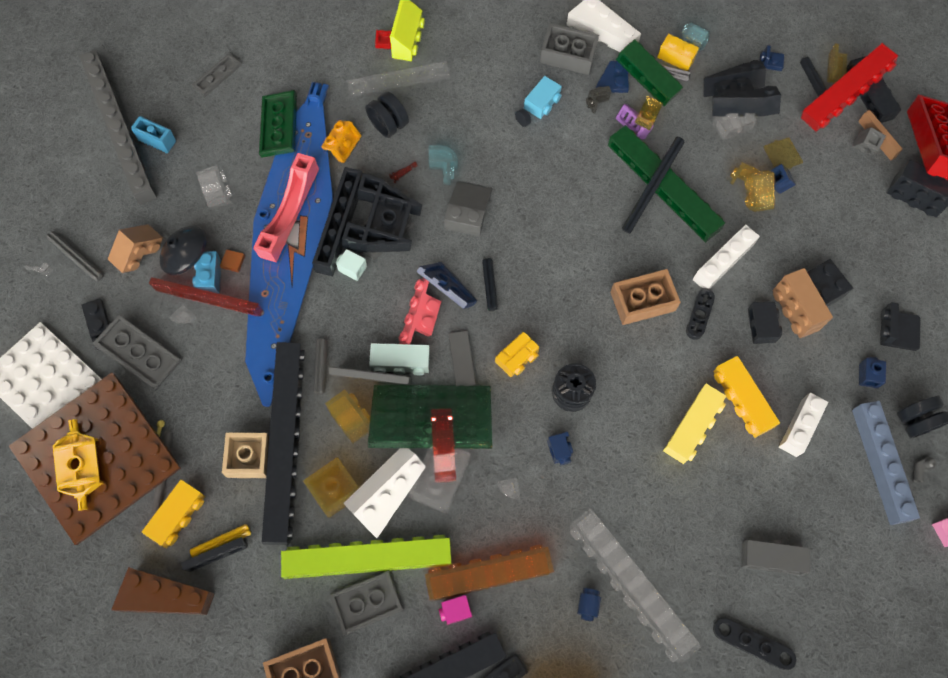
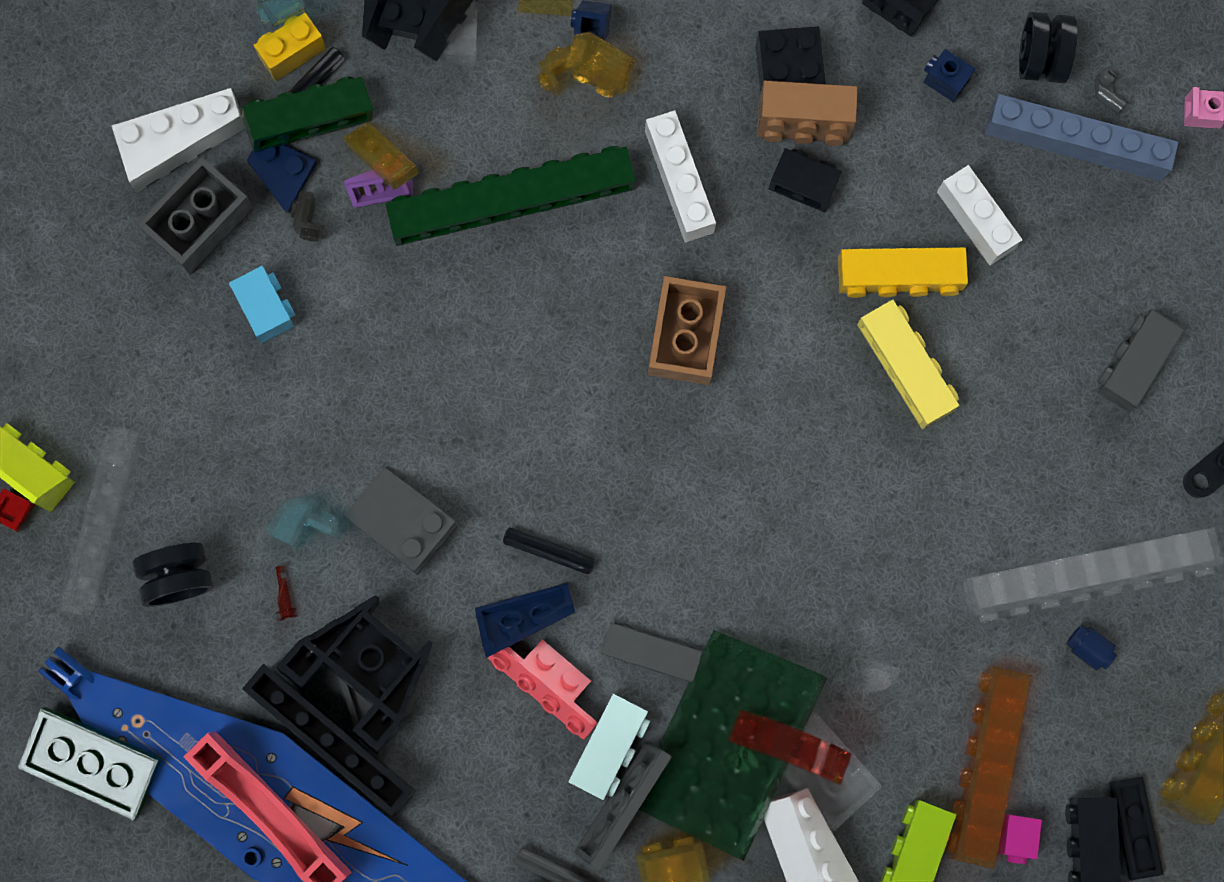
camera: 65 degrees left, 10 degrees up
(342, 140) = (177, 670): light orange bracket -> none
(351, 264) = (413, 753): light aqua brick -> none
(517, 354) = (685, 565): yellow brick -> none
(523, 117) = (283, 354): black tile -> none
(560, 448) = (857, 575): dark blue brick -> none
(566, 395) = (782, 528): black wheel -> none
(653, 185) = (512, 218): black axle -> none
(694, 319) = (724, 252): black beam -> none

